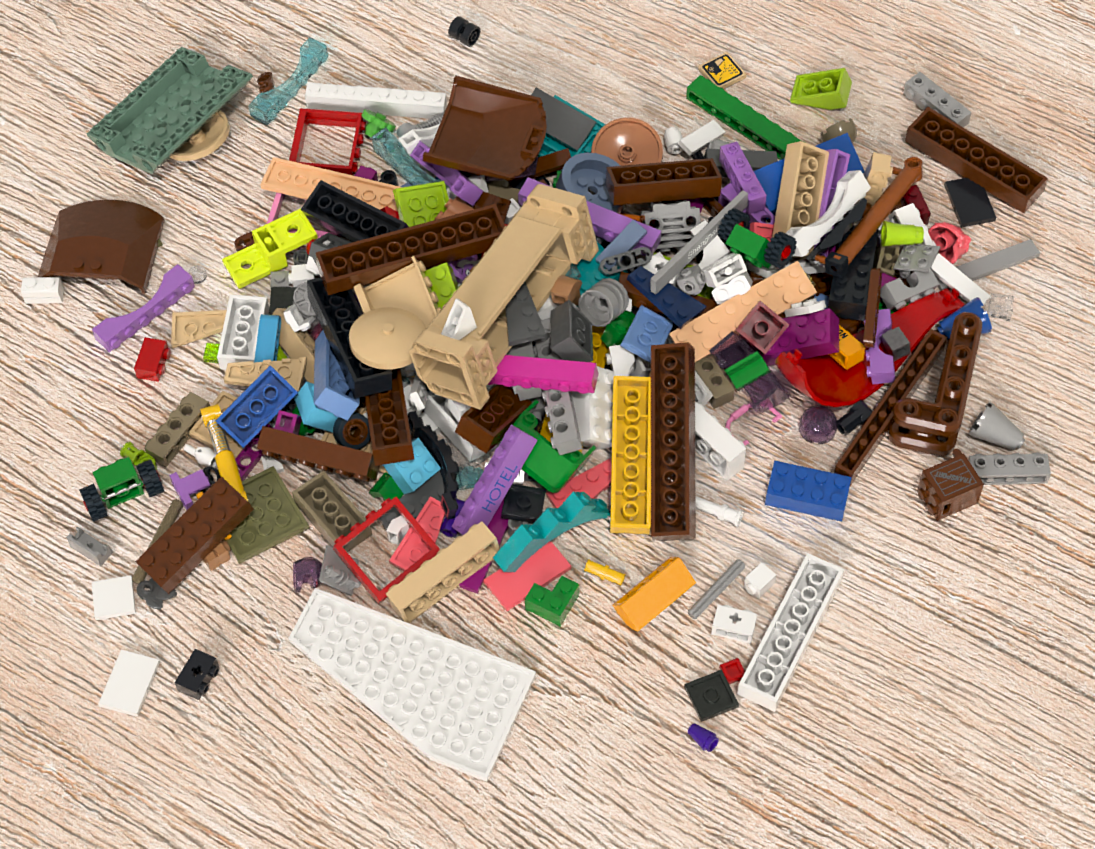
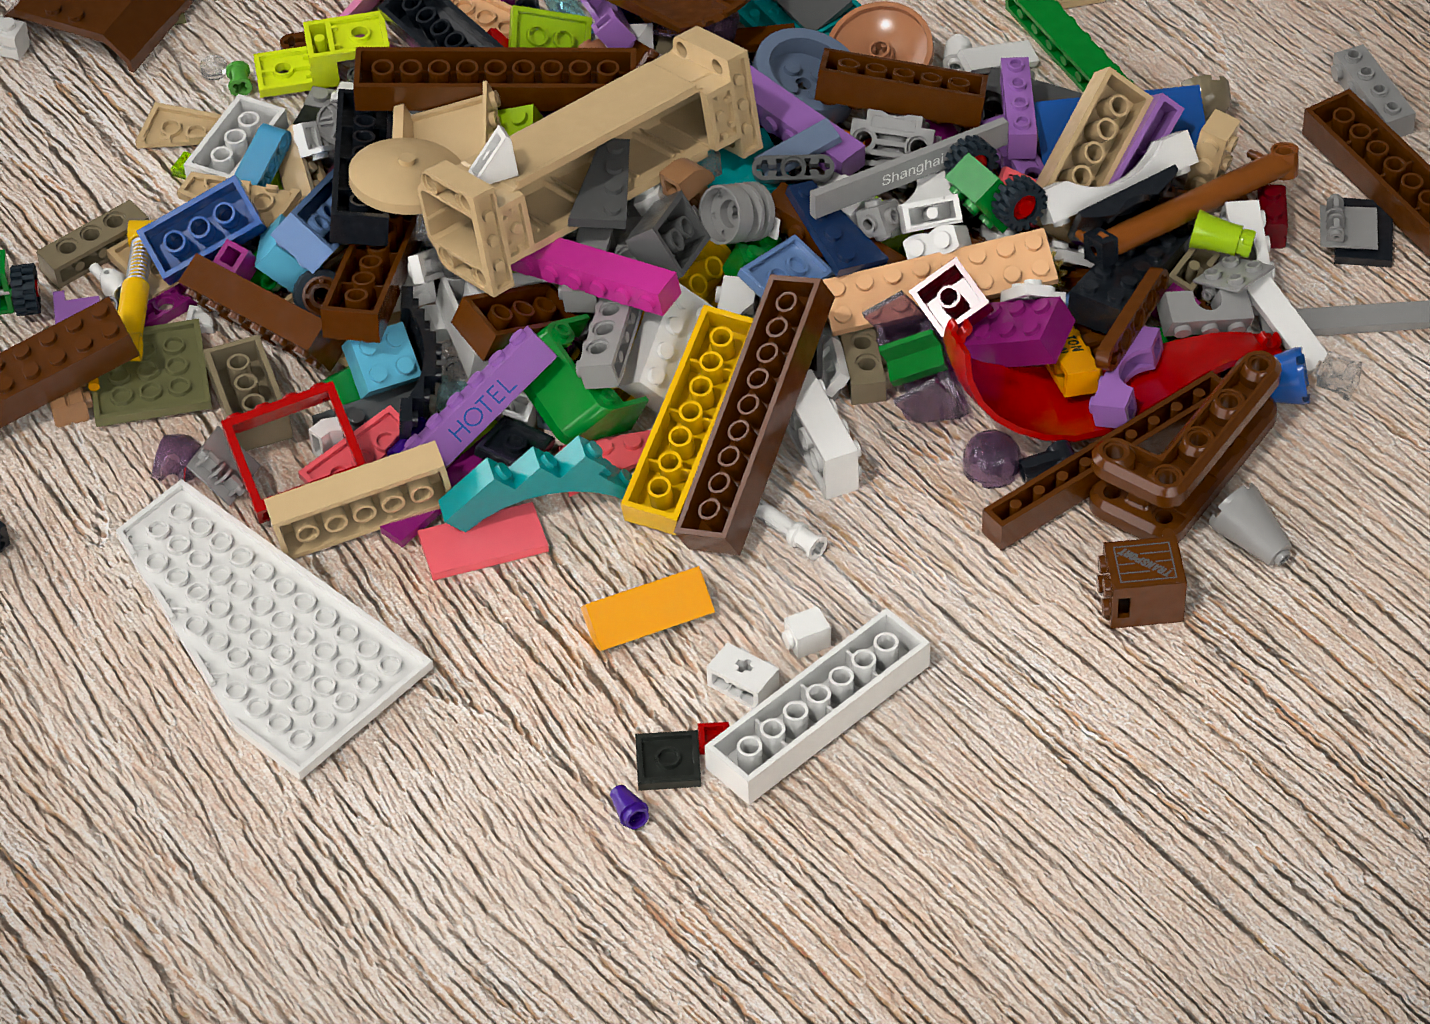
camera: 20 degrees right, 10 degrees down
(116, 330) = (73, 106): medium lavender arch -> none
(136, 456) = (26, 258): lime connector -> none
(152, 359) = (101, 152): red brick -> none
(219, 279) = (238, 74): none -> bright green bush
(553, 604) = (503, 584): green brick -> none
(604, 572) = (591, 565): yellow pin -> none
(716, 589) = (741, 628): light grey axle -> none
(743, 409) = (887, 416): bright pink piece -> none
(808, 491) = (933, 537): blue brick -> none
(822, 89) = (1210, 38): lime slope -> none
(896, 343) = (1150, 378): flat silver brick -> none
(950, 239) = (1299, 270): coral head -> none
(962, 201) = (1347, 226): none -> light grey hinge
(1012, 469) = (1247, 586): light grey brick -> none

